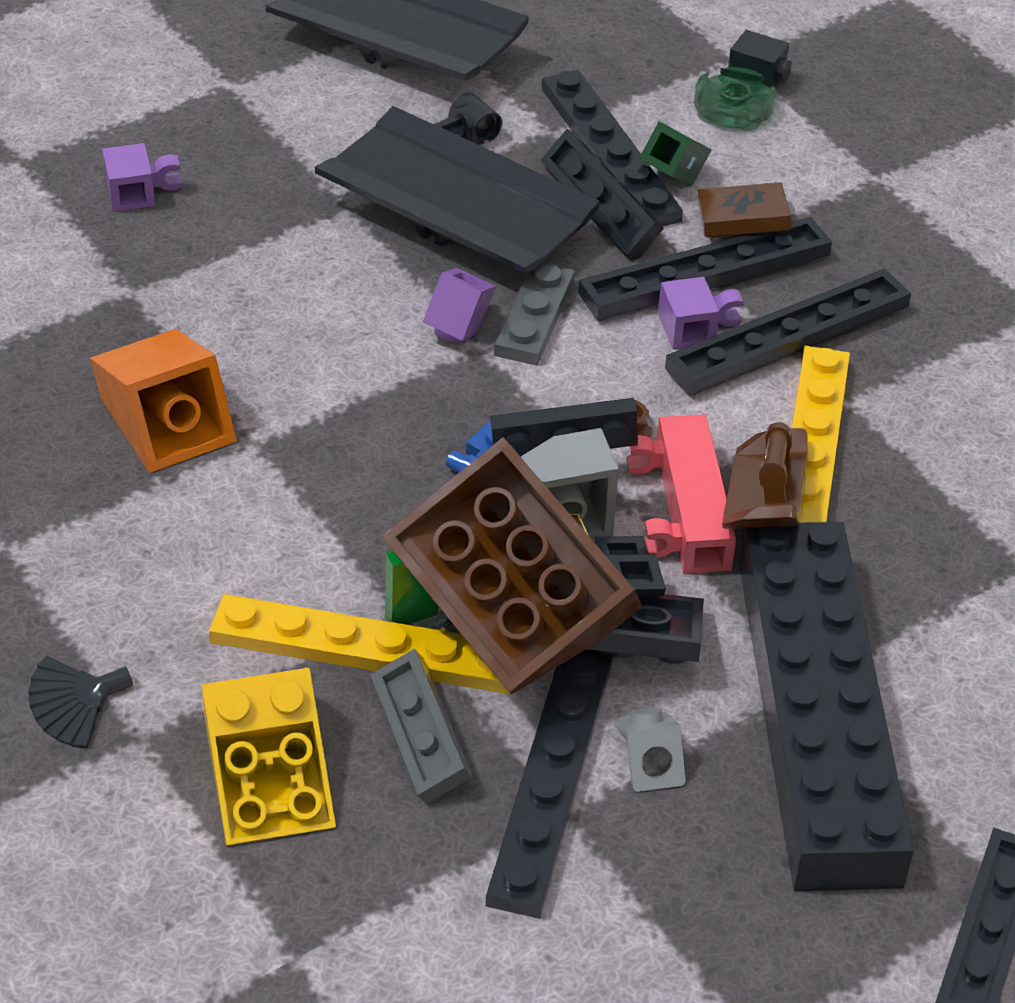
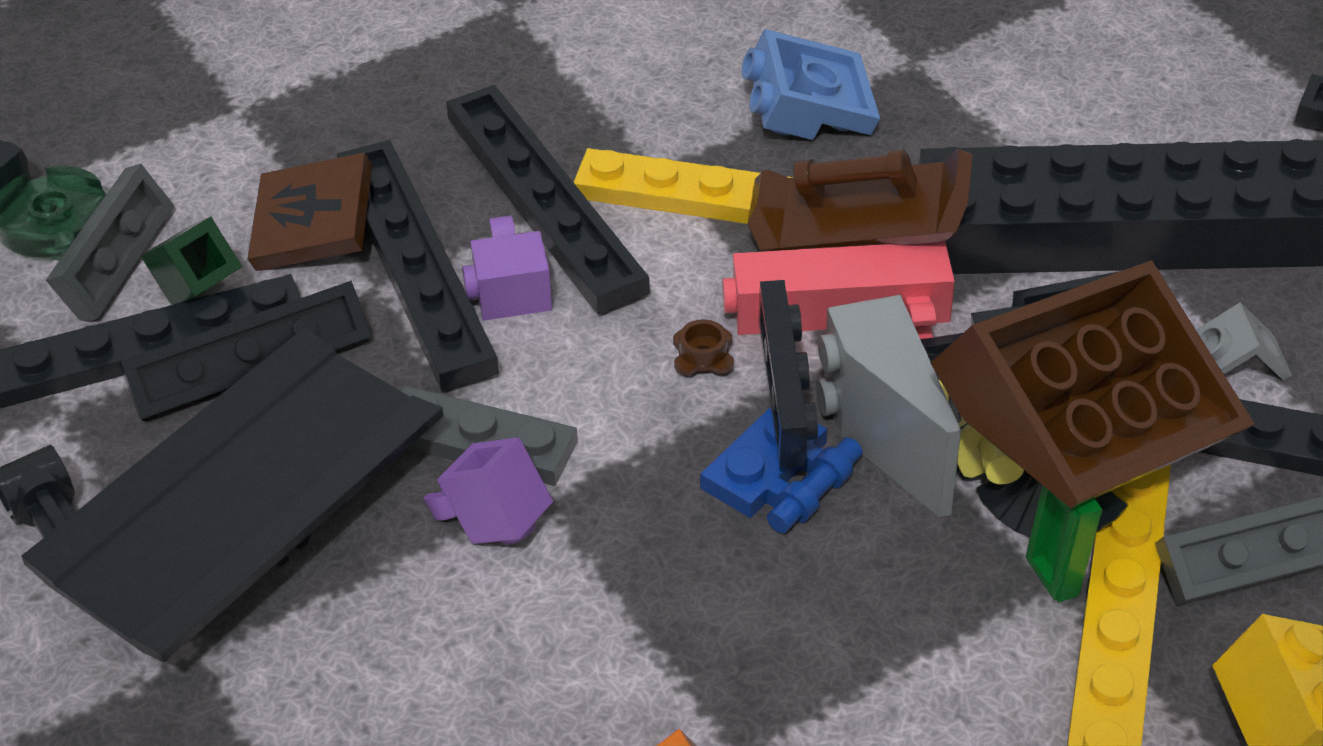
camera: 85 degrees left, 0 degrees up
(704, 122) = (110, 243): none -> dark grey plate
(950, 479) = (808, 85): none -> medium blue plate

